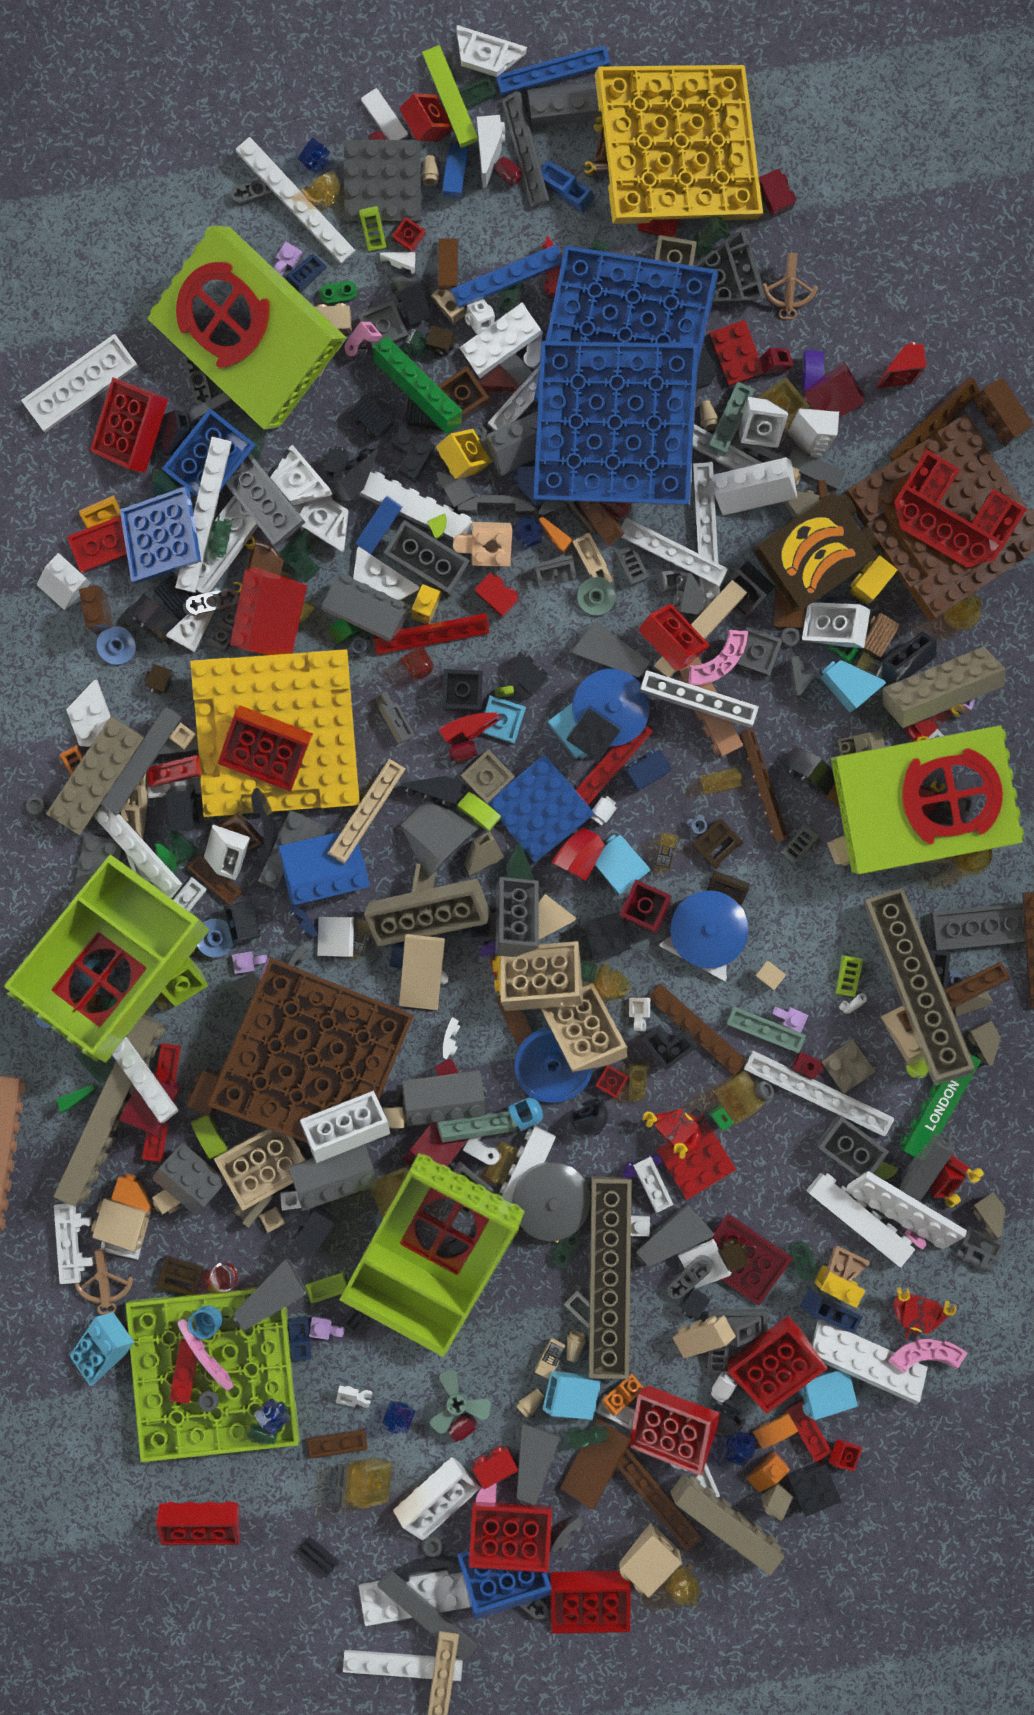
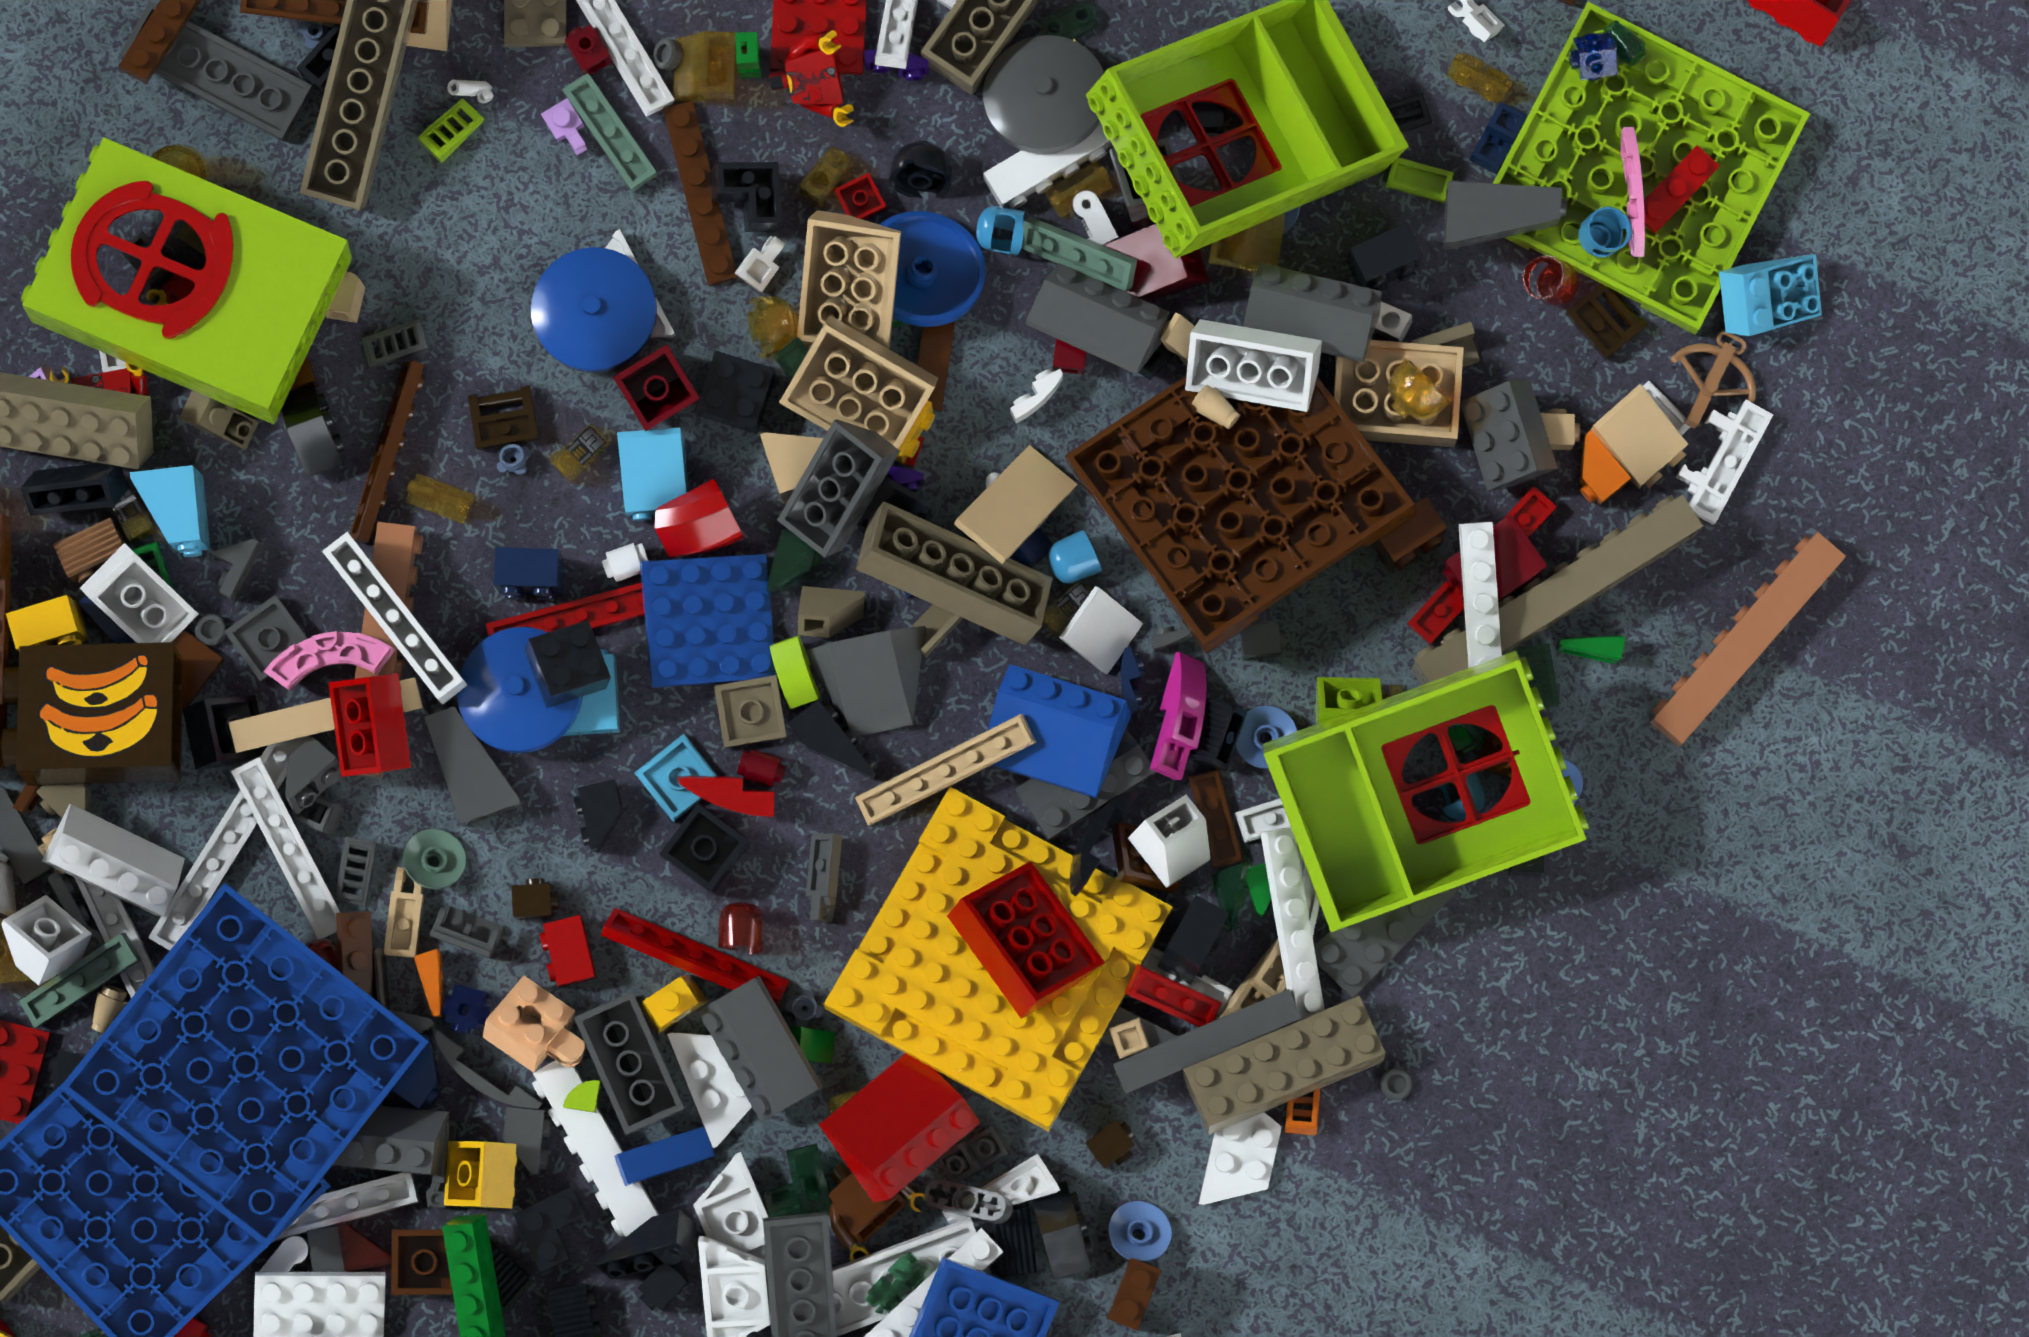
camera: 140 degrees left, 5 degrees down
(208, 1136) = (1447, 478): lime slope -> none
(208, 1400) = (1668, 132): dark grey tile -> none
(246, 962) = (1246, 679): lavender plate -> none
(248, 1167) = (1415, 393): none -> clear yellow cylinder
(260, 915) = (1184, 716): none -> dark pink slope
(272, 1219) = (1434, 315): tan tile -> none
(321, 1364) = (1467, 72): none -> clear yellow hinge
(323, 1327) = (1458, 131): lavender plate -> none
(350, 1091) = (1215, 407): none -> tan cone
(374, 964) = (1073, 558): none -> dark azure helmet
(504, 691) = (652, 814): lime tile -> none
(532, 609) = (534, 900): none -> dark brown brick
(729, 885) = (527, 351): dark brown slope -> none
(770, 975) = (554, 196): tan panel -> none

